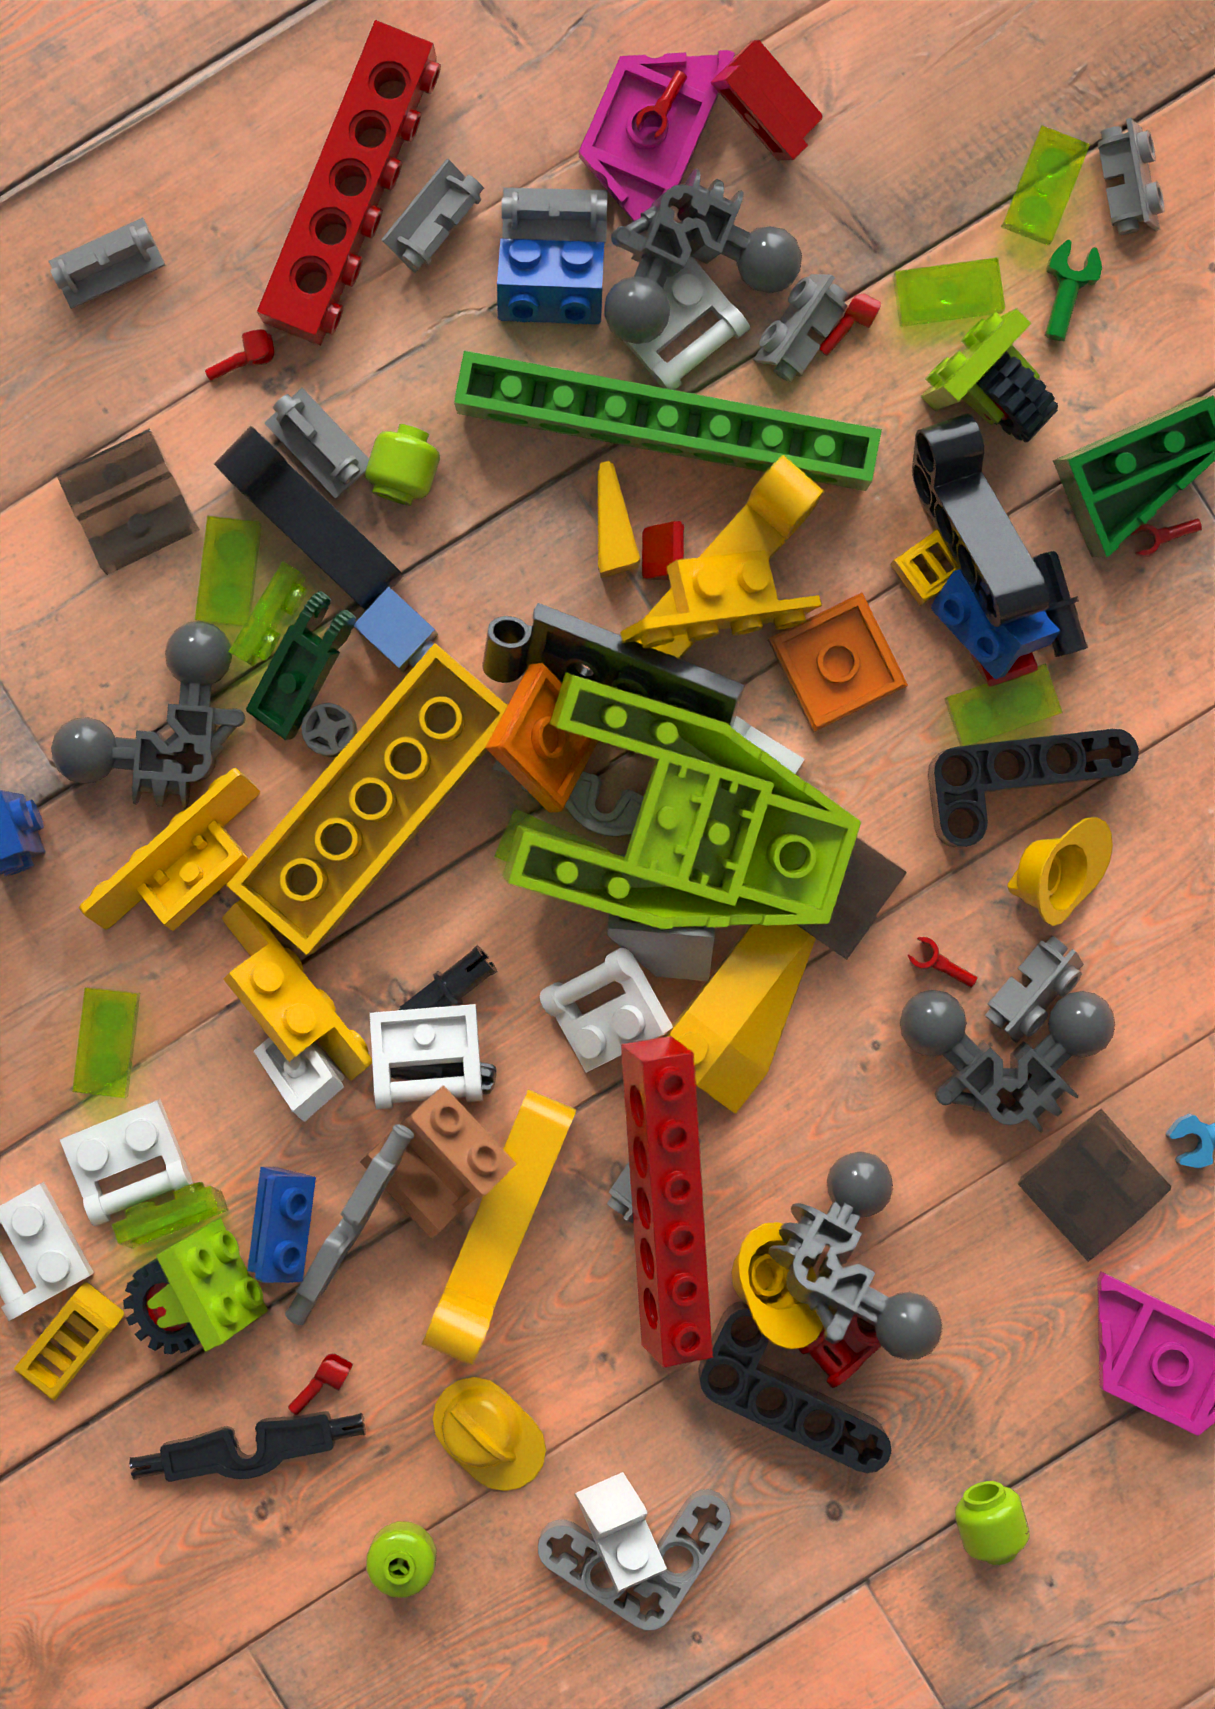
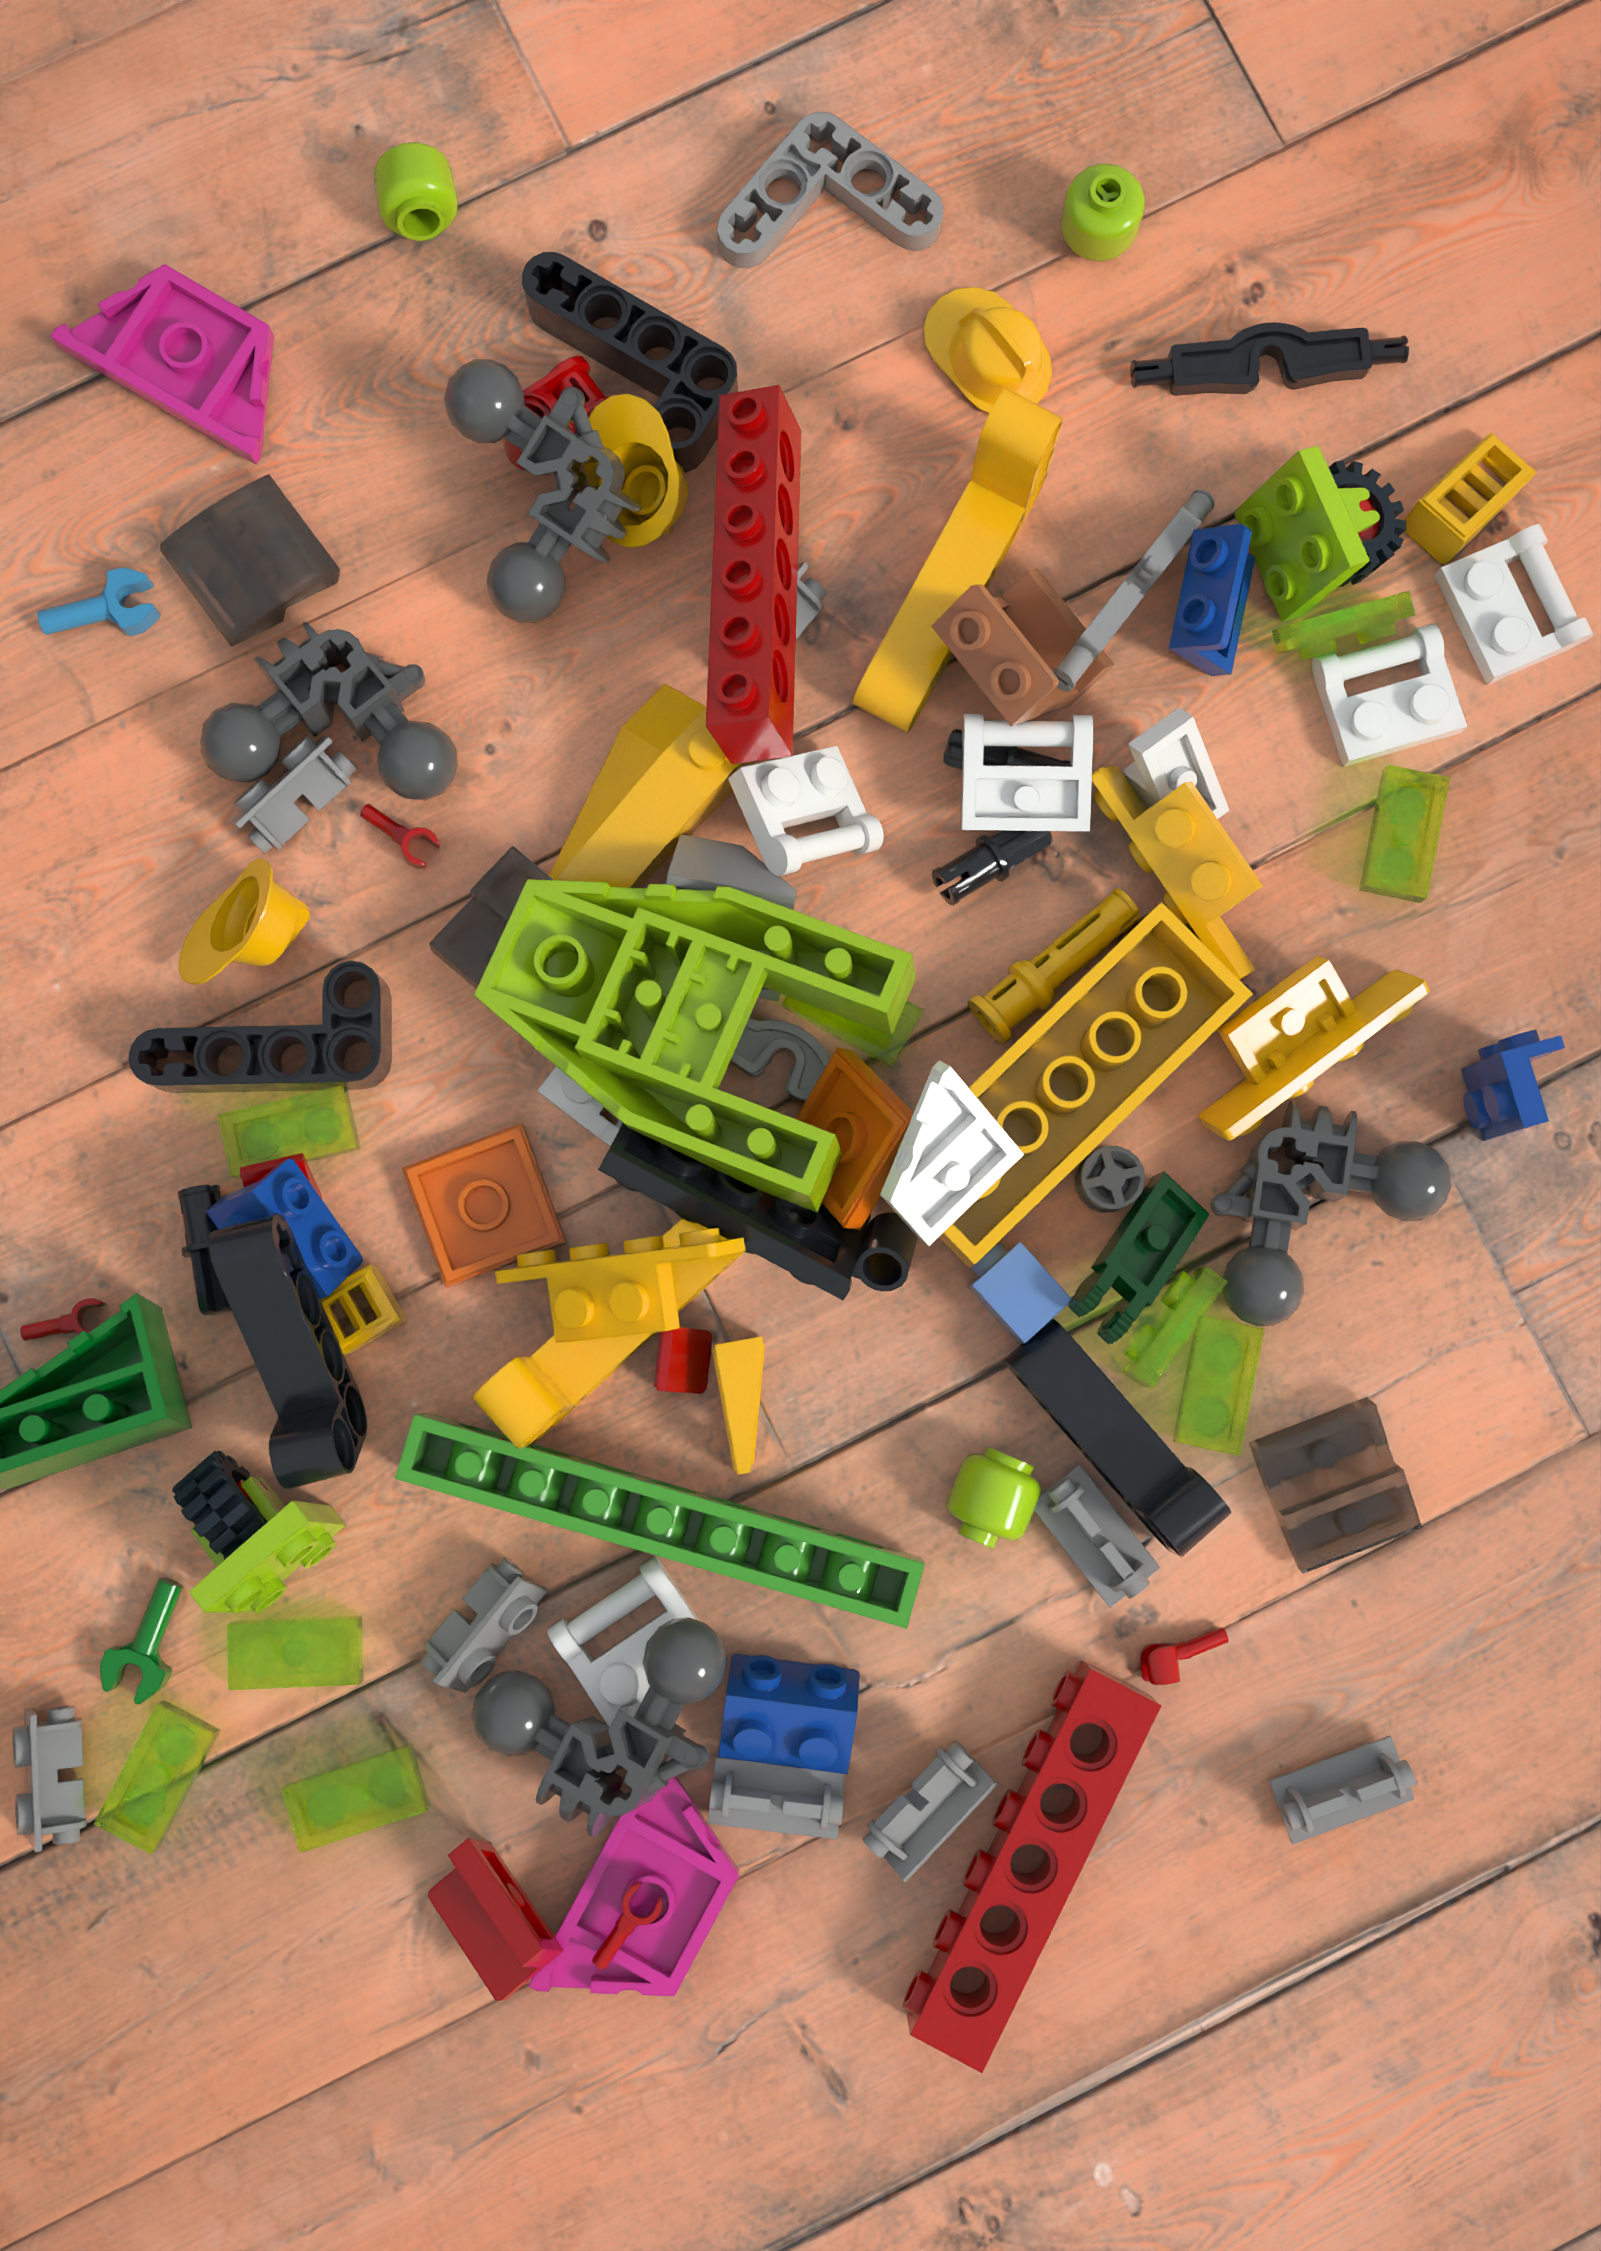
camera: 170 degrees left, 5 degrees down
(331, 1372) = (1165, 434): red hand -> none
(405, 887) = (1034, 981): none -> yellow pin
(465, 721) = (946, 1156): none -> white wing
(621, 1531) = (845, 220): white slope -> none
(860, 310) = (406, 1639): red hand -> none
(886, 183) = (355, 1798): none -> clear neon green plate

